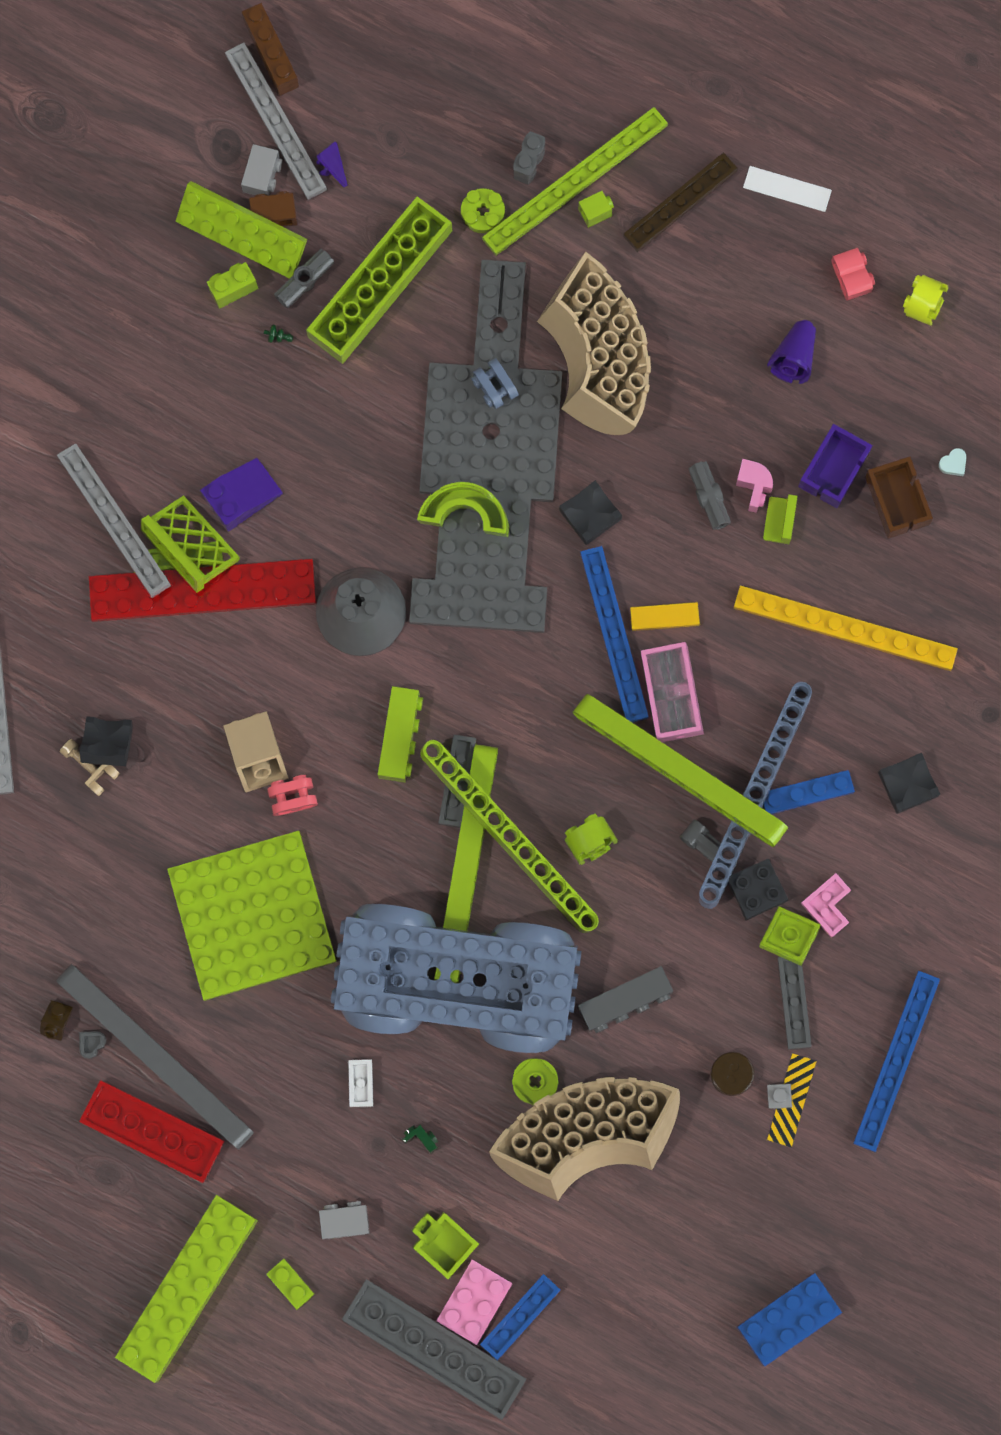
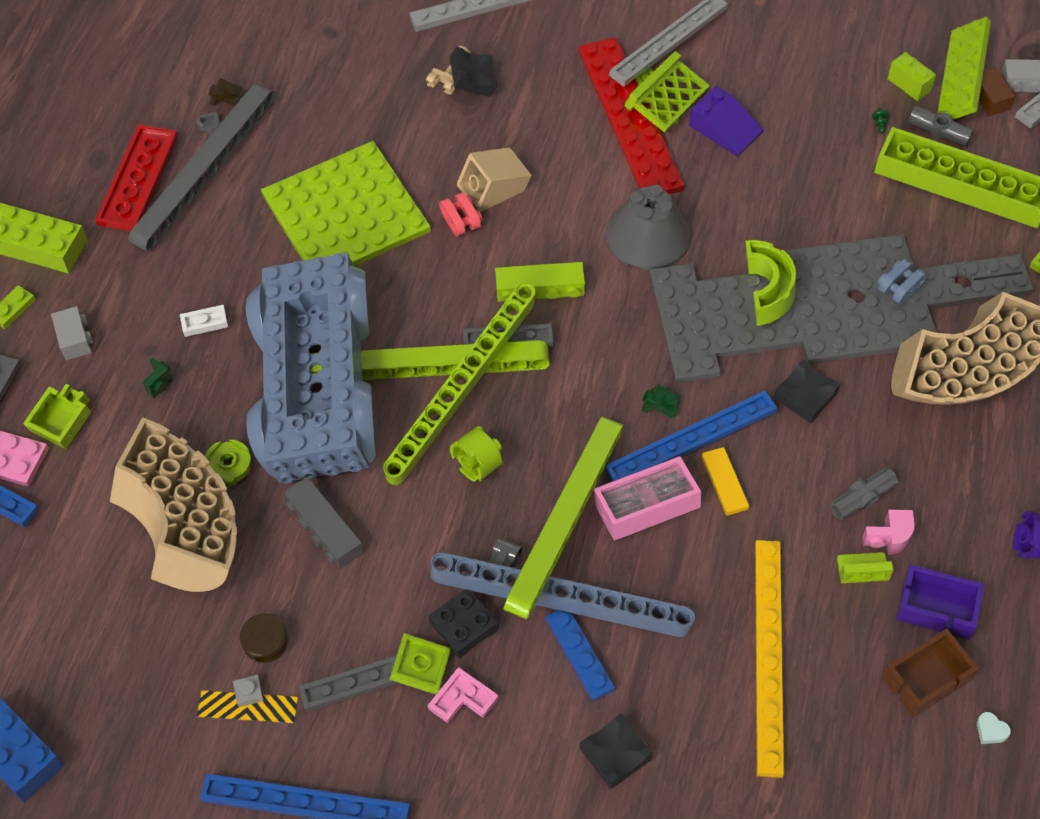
camera: 75 degrees right, 20 degrees down
(566, 652) = (661, 400): none -> dark green bracket

